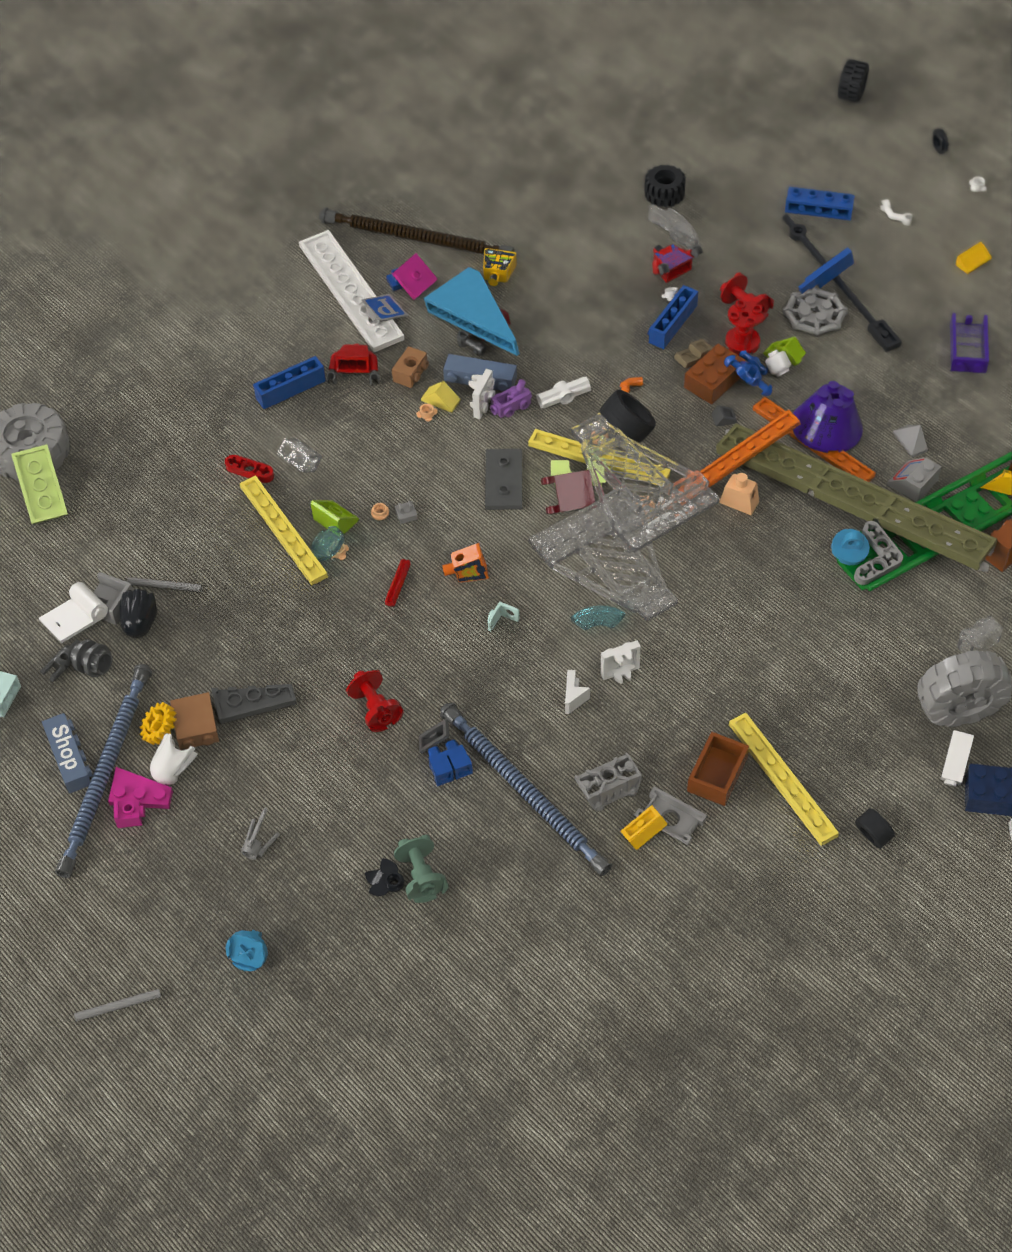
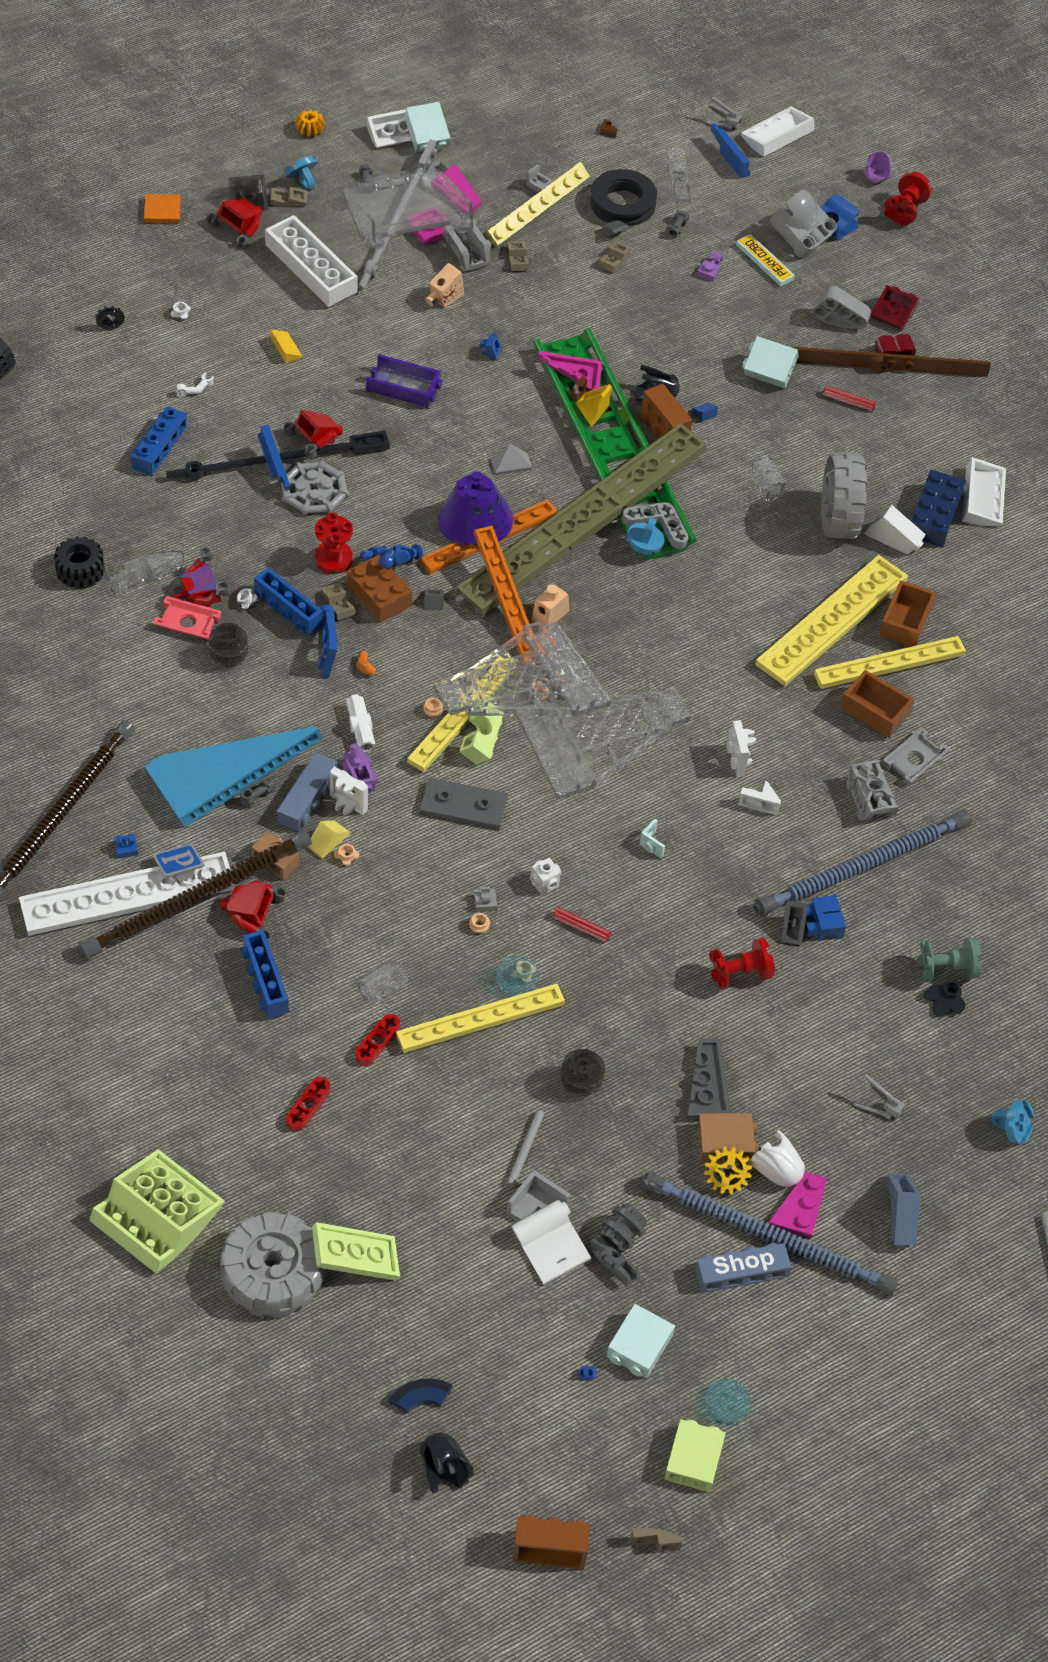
camera: 85 degrees left, 0 degrees up
(68, 367) = (156, 1210): none -> yellowish green slope
(128, 813) = (831, 1216): dark pink brick -> none
(137, 612) = (575, 1172): black hair -> none
(140, 860) = (904, 1209): none -> sand blue arch
(175, 433) = (308, 1113): none -> red beam
(234, 602) = (582, 1072): none -> clear smoke piece
(292, 279) = (94, 945): none -> dark brown hose
(332, 514) = (476, 966): lime slope -> none
(414, 276) = (135, 823): dark pink plate -> none
(437, 544) = (545, 875): none -> white brick
(467, 564) = (582, 851): orange torso -> none
(498, 265) = (144, 742): torso -> none
(572, 489) = (509, 743): flag -> none
(596, 616) = (667, 761): clear light blue tile -> none
(609, 288) = (228, 644): none -> clear smoke piece
(623, 350) = (329, 641): none -> blue plate
(628, 415) = (430, 667): black tyre -> none
(638, 256) = (179, 609): none -> coral piece
(644, 827) = (926, 777): yellow slope -> none
(735, 289) = (294, 532): red piece -> none
(778, 363) = (383, 533): white head -> none
(791, 347) = (367, 524): lime slope -> none
(820, 721) = (831, 620): none -> light yellow plate
(846, 780) = (907, 614): none -> dark orange piece
(875, 295) = (316, 428): none -> red torso
(875, 828) = (959, 608): black tyre -> none
(915, 478) = (564, 470): light grey slope -> none

